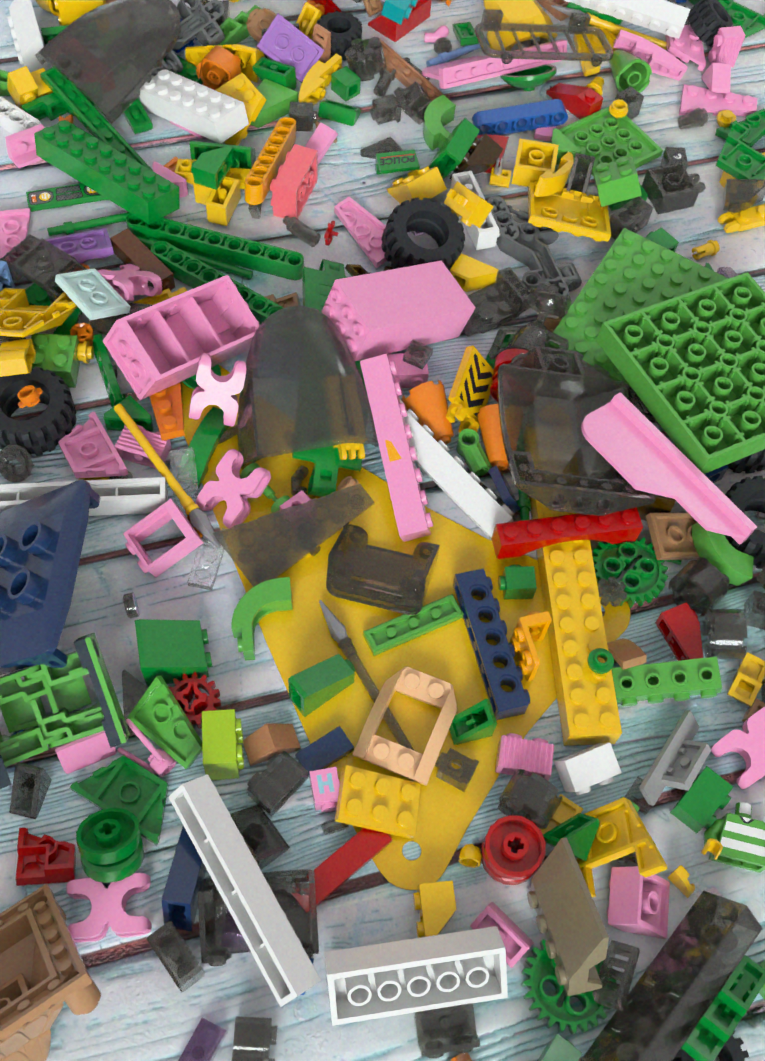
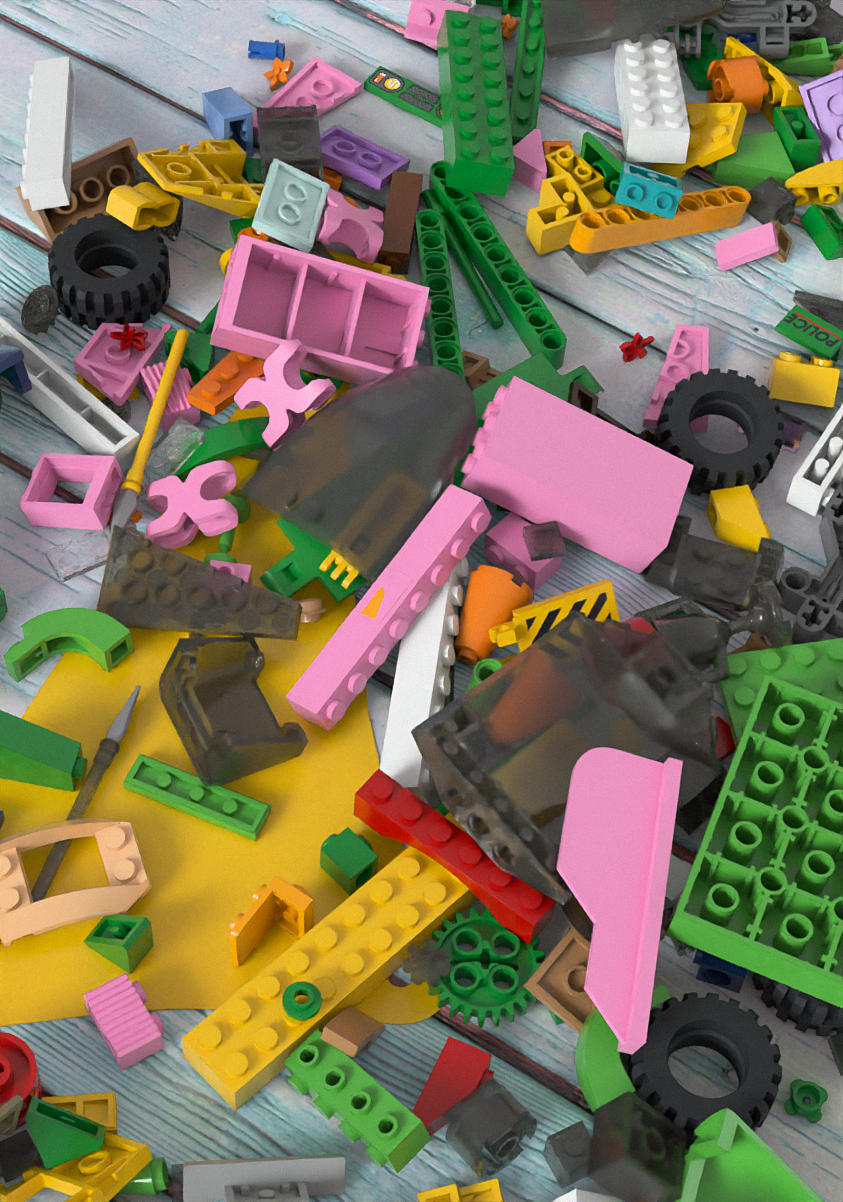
camera: 50 degrees right, 5 degrees down
(29, 396) = (111, 252): orange plate -> none
(58, 355) = (196, 244): bright green brick -> none
(69, 227) = (379, 134): green bar -> none
(88, 435) = (131, 338): none -> red plant
(137, 117) = (590, 73): green plate -> none
(212, 167) = (579, 176): green slope -> none
(259, 145) = (649, 190): none -> teal bracket
(294, 182) = (659, 264): coral brick -> none
(297, 478) = (265, 558): clear smoke arm -> none
(302, 231) = (610, 323): clear smoke cylinder -> none
(456, 777) = (52, 971): clear smoke brick -> none
(468, 205) = (810, 433): yellow brick -> none
(503, 703) = (288, 812): dark blue brick -> none
(530, 798) = (68, 1056): clear smoke brick -> none
(588, 768) = (166, 1094): white brick -> none
(699, 585) = (529, 1056): clear smoke brick -> none

